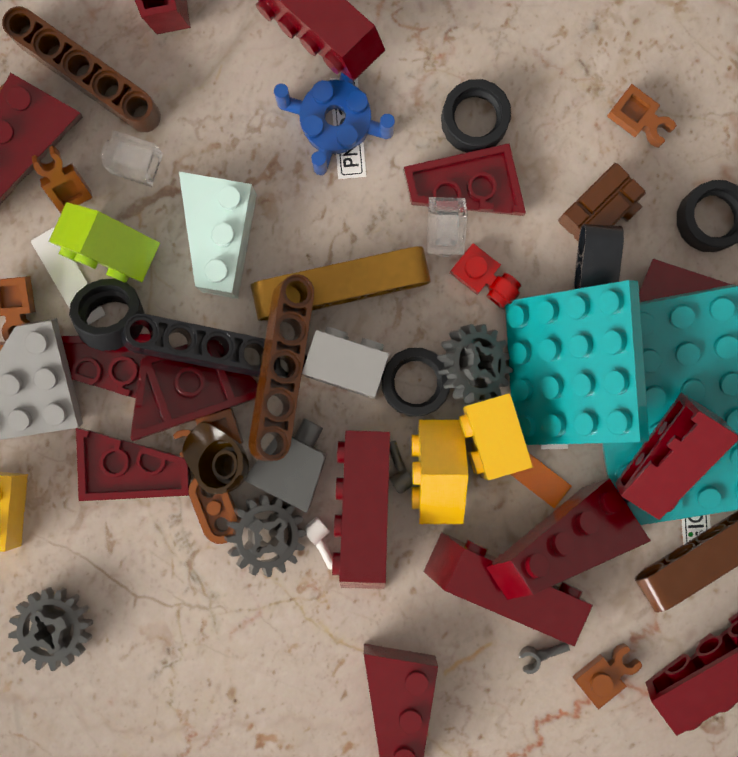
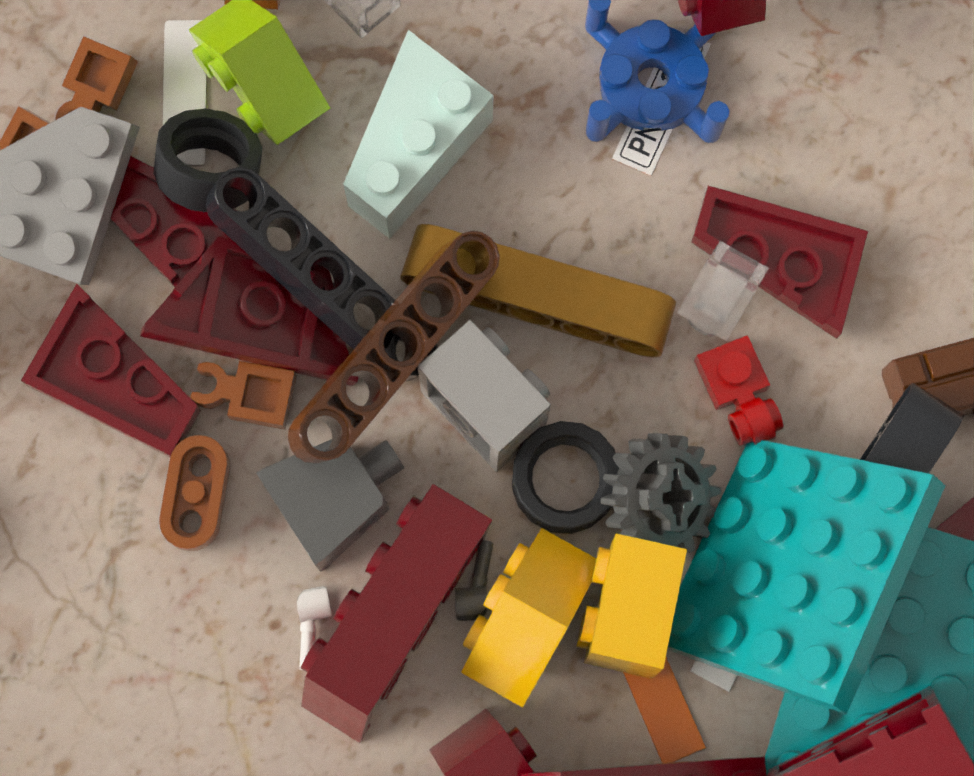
camera: 25 degrees right, 10 degrees down
(215, 459) = (236, 423): dark brown piece -> none
(255, 546) = (250, 593): dark grey gear -> none
(487, 91) = (858, 138): black tyre -> none

